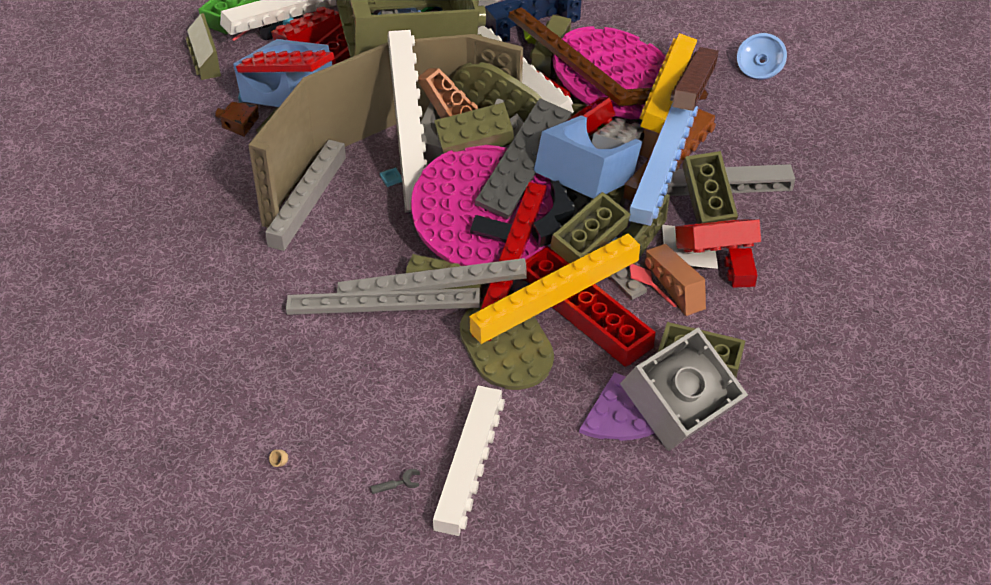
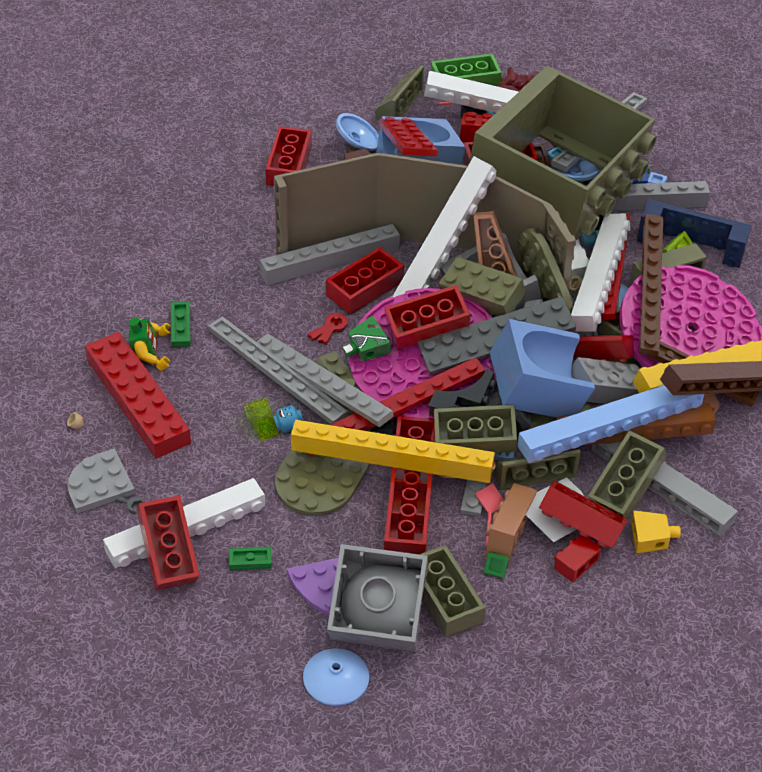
camera: 45 degrees right, 0 degrees up
(178, 146) = (288, 152): none -> red brick
(207, 96) = (357, 132): none -> light blue dish
(257, 358) = (144, 341): none -> torso
(260, 325) = (180, 324): none -> green plate
(302, 399) = (138, 395): none -> red brick
(359, 193) = (364, 280): none -> red brick
(360, 486) = (98, 481): none -> light grey plate
(375, 240) = (333, 323): none -> red piece
(416, 341) = (261, 418): none -> clear neon green slope
(438, 328) = (286, 417): none -> dark azure head
(441, 225) = (367, 341): none -> green torso
(467, 176) = (426, 316): none -> red brick
(490, 228) = (405, 371): black tile -> none
(490, 478) = (166, 522): none -> red brick
(545, 443) = (250, 558): none -> green plate
(702, 312) = (496, 564): none -> green plate
(703, 478) = (336, 686): none -> light blue dish
(760, 210) = (652, 531): none -> yellow torso

